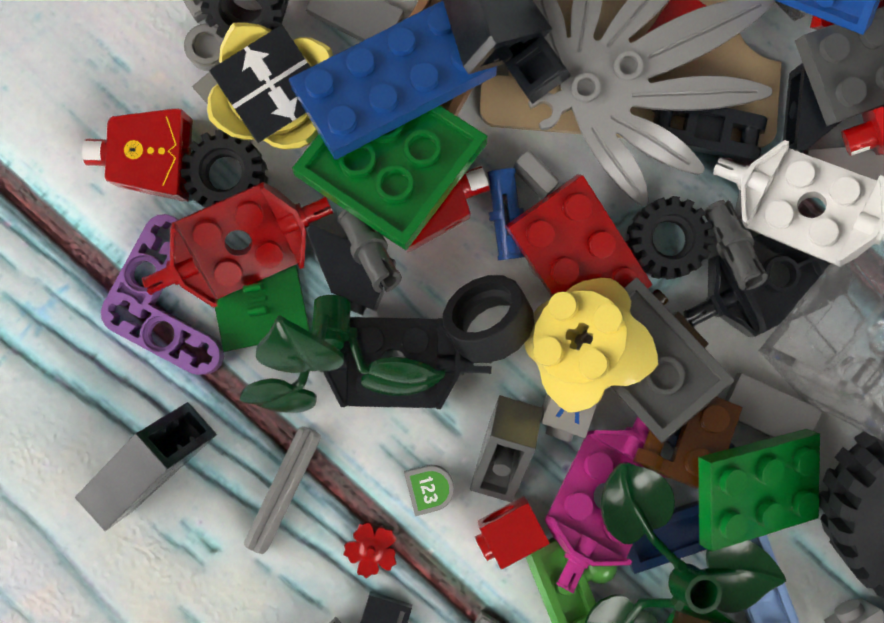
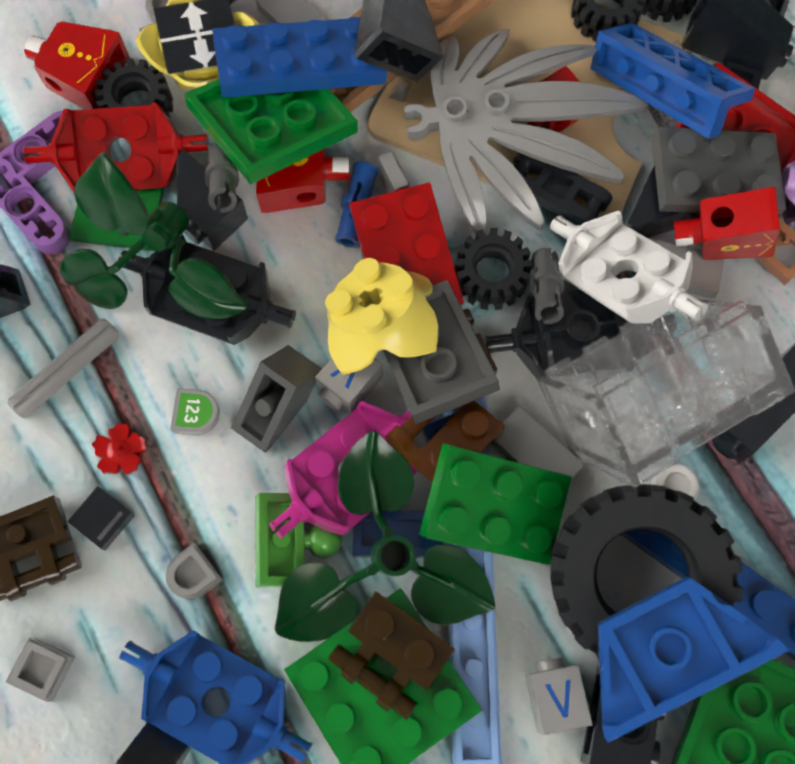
camera: 25 degrees right, 15 degrees down
(501, 338) = (302, 274): black tyre -> none
(510, 533) = (249, 472): red brick -> none
(537, 69) = (419, 84): black tile -> none

